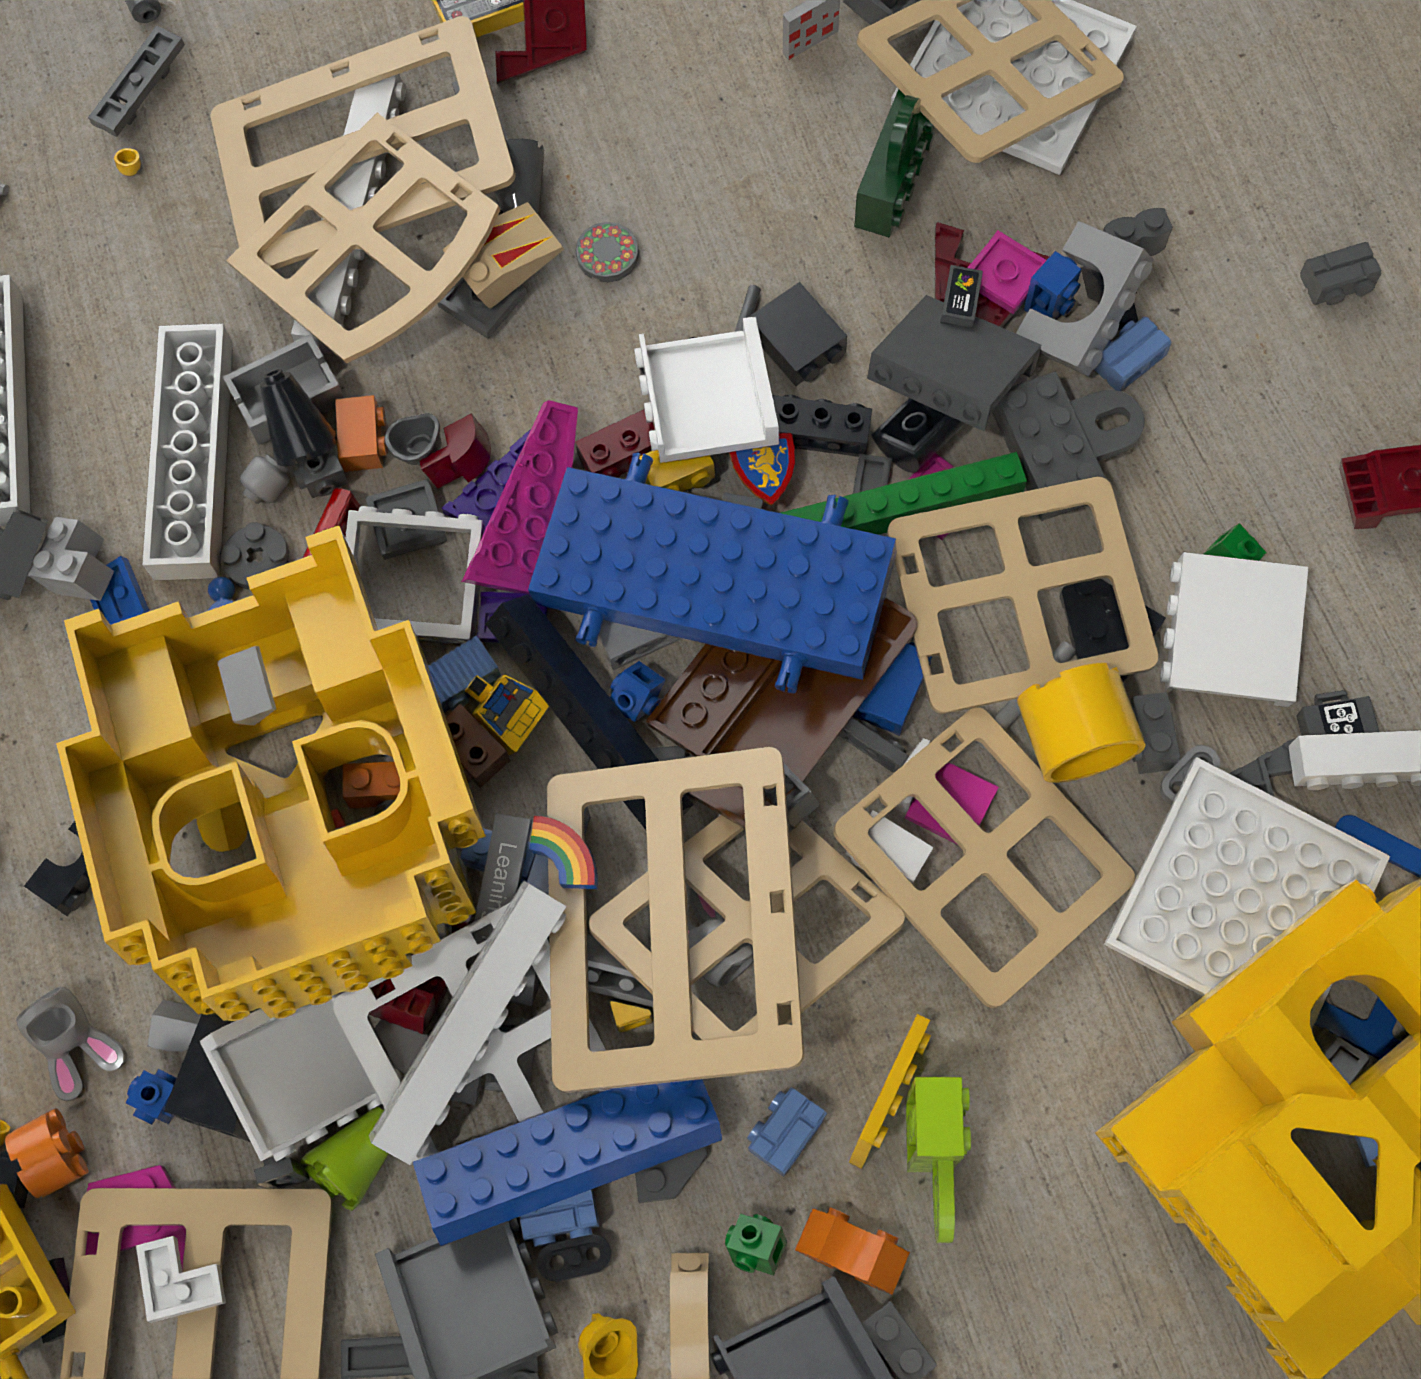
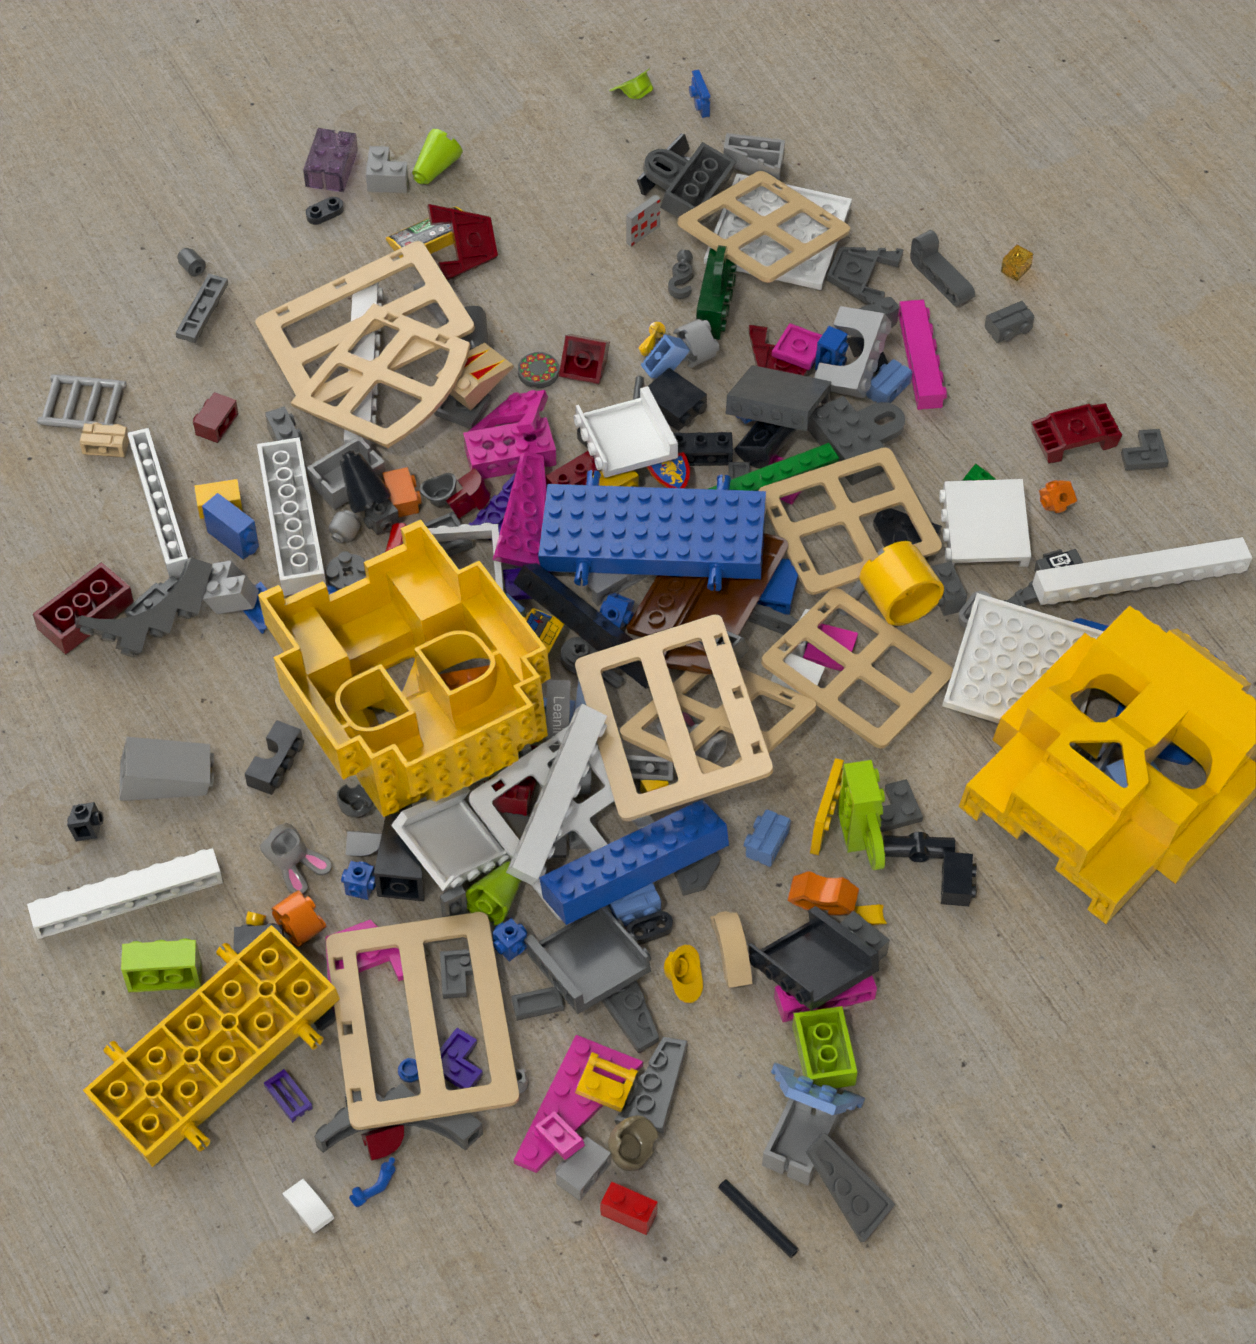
camera: 15 degrees left, 15 degrees down
(93, 403) = (228, 489): none -> yellow brick
(95, 456) = (230, 526): none -> blue brick
(119, 265) = (215, 417): none -> brick
(127, 161) = (206, 357): yellow hinge -> none
(167, 1289) = (400, 975): white plate -> none
(209, 298) = (282, 425): none -> dark grey brick
(246, 686) = (377, 623): light grey slope -> none
(262, 1284) = (454, 968): none -> dark grey plate
(370, 1241) = (509, 939): none -> blue brick
(515, 381) = (499, 448): none -> dark pink brick
(550, 766) = (578, 647): none -> dark grey piece
(556, 319) = (517, 408): none -> dark pink wing
(566, 850) = (597, 693): tile -> none
(677, 243) = (584, 358): none -> dark red slope
(755, 1244) = (762, 898): green brick -> none
(795, 211) = (656, 330): none -> yellow piece
(796, 262) = (665, 355): none -> medium blue brick
(848, 243) = (699, 341): none -> light grey brick
(853, 119) = (681, 273): none -> dark grey piece
(917, 1293) = (871, 913): none -> yellow piece
(961, 296) = (775, 360): tile -> none
(1010, 1111) = (902, 808): none -> dark grey plate
(1019, 1190) = (918, 846): none -> black piece
(1069, 1260) = (957, 879): none -> black brick
(1117, 146) = (854, 268): none -> dark grey wing
(1192, 311) = (921, 354): none -> dark pink brick
(1248, 169) = (938, 270): none -> dark grey beam
(1358, 595) = (1057, 496): none -> orange brick
(1371, 171) = (1017, 262): none -> clear yellow brick

